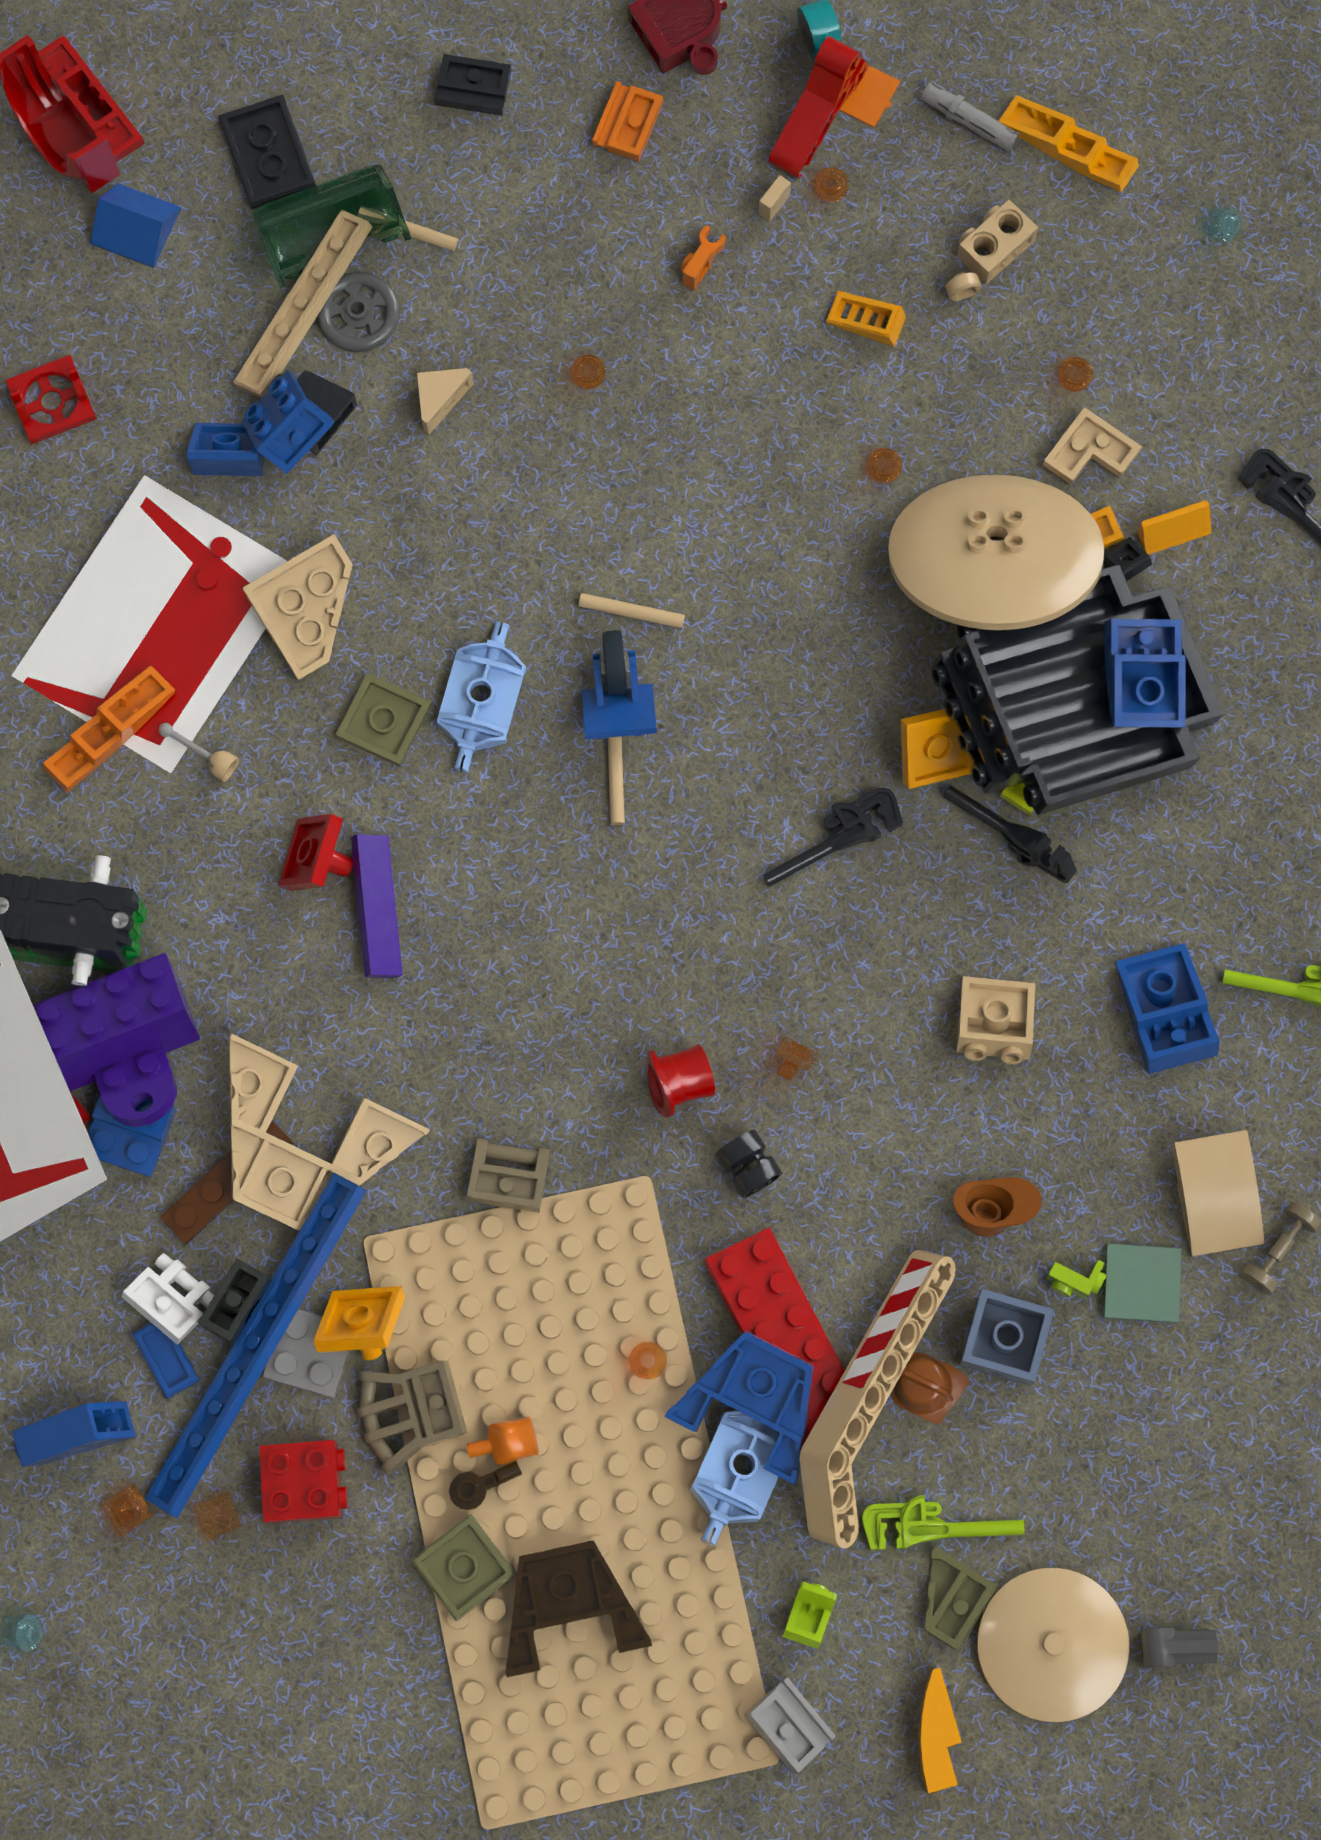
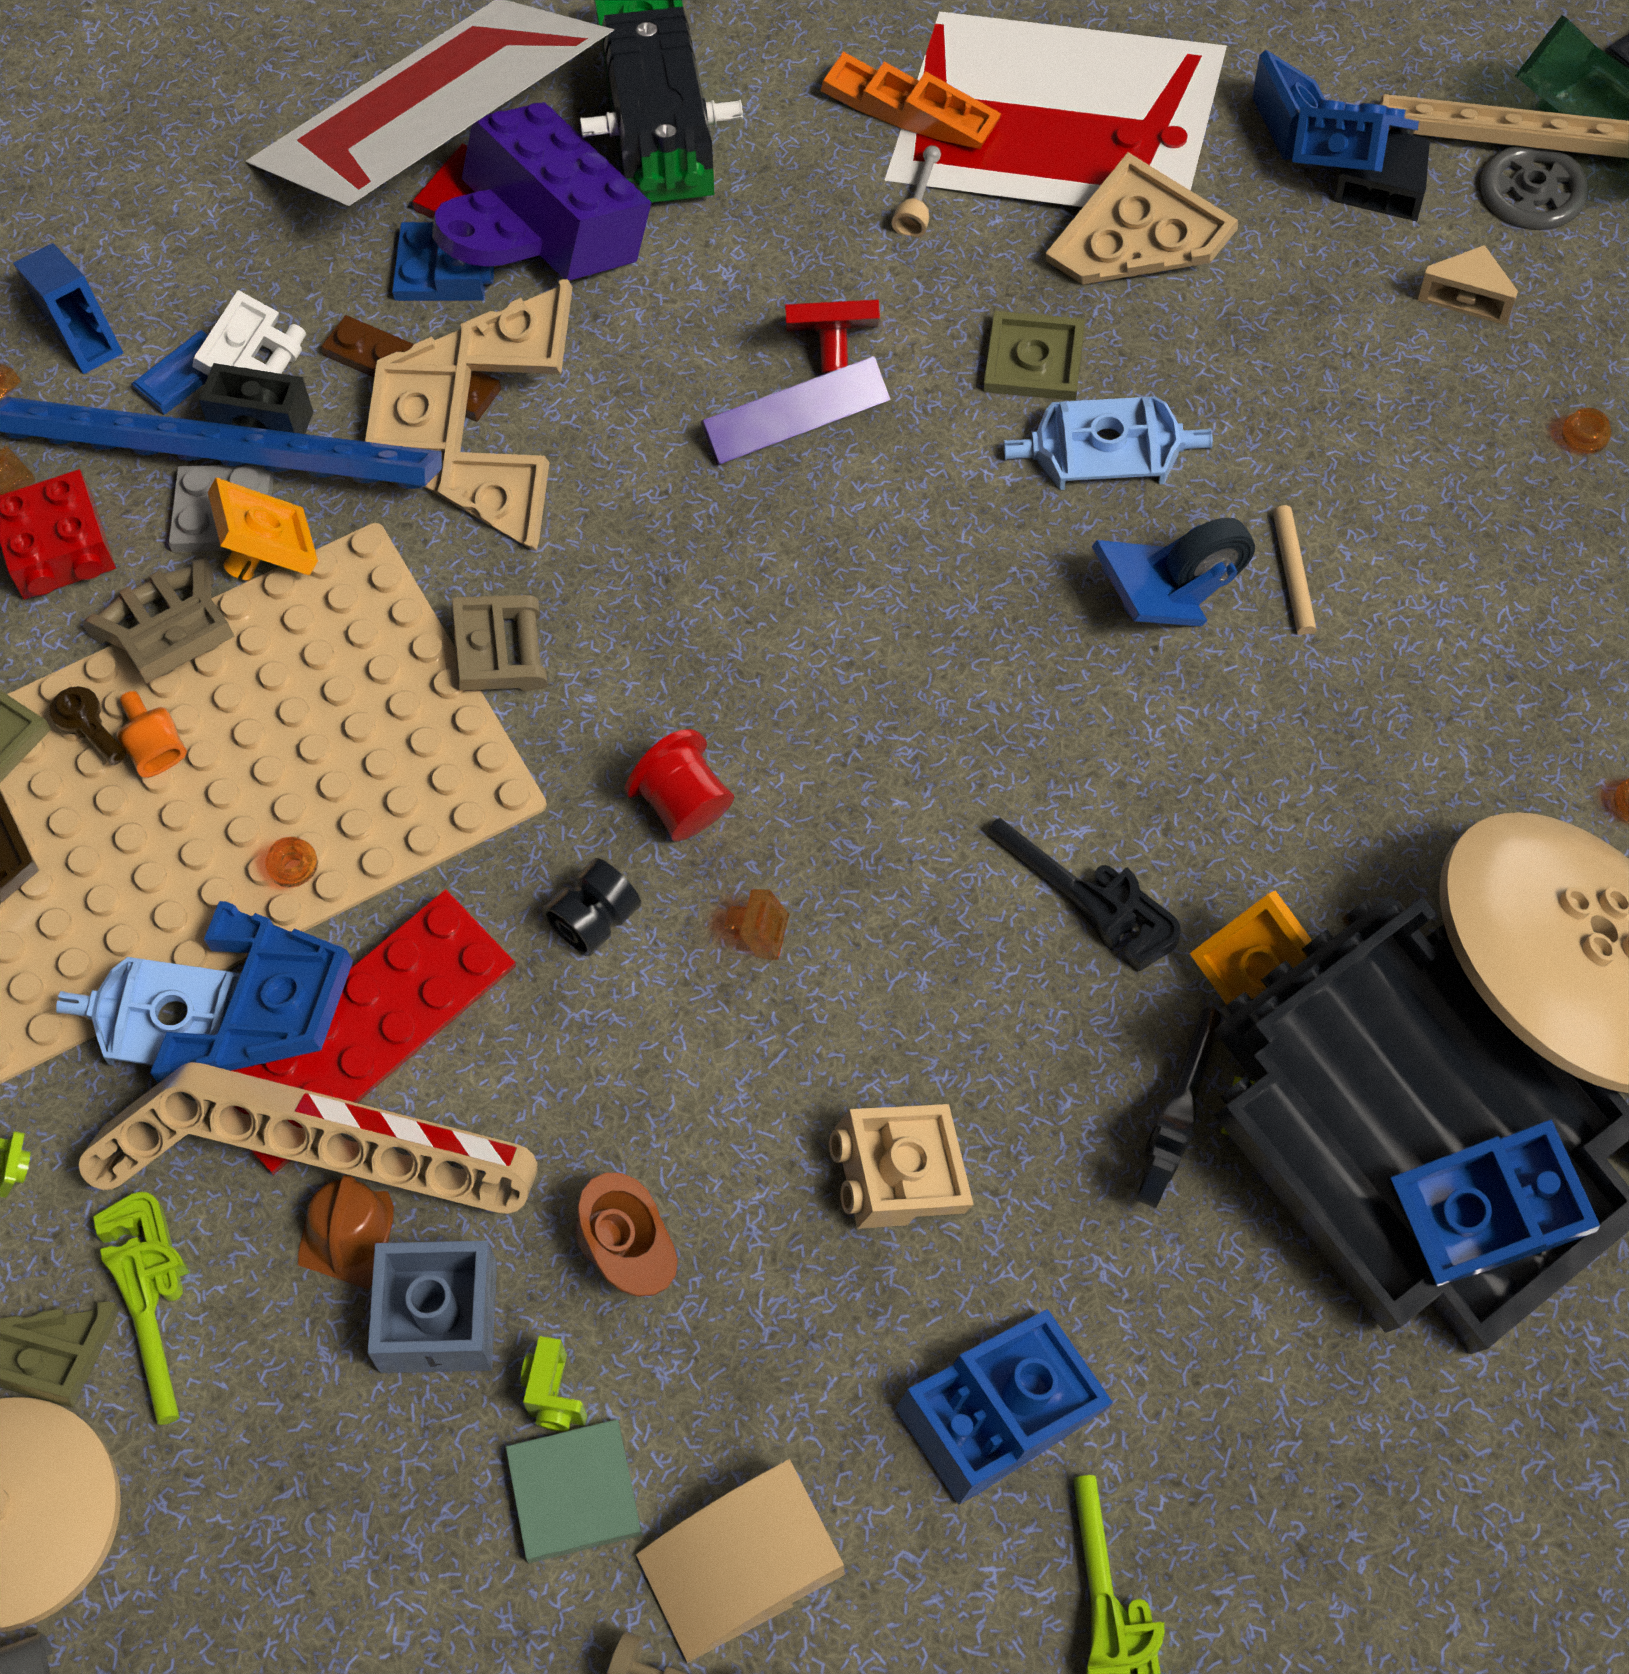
camera: 75 degrees right, 15 degrees down
(616, 789) = (1061, 617): tan bar -> none

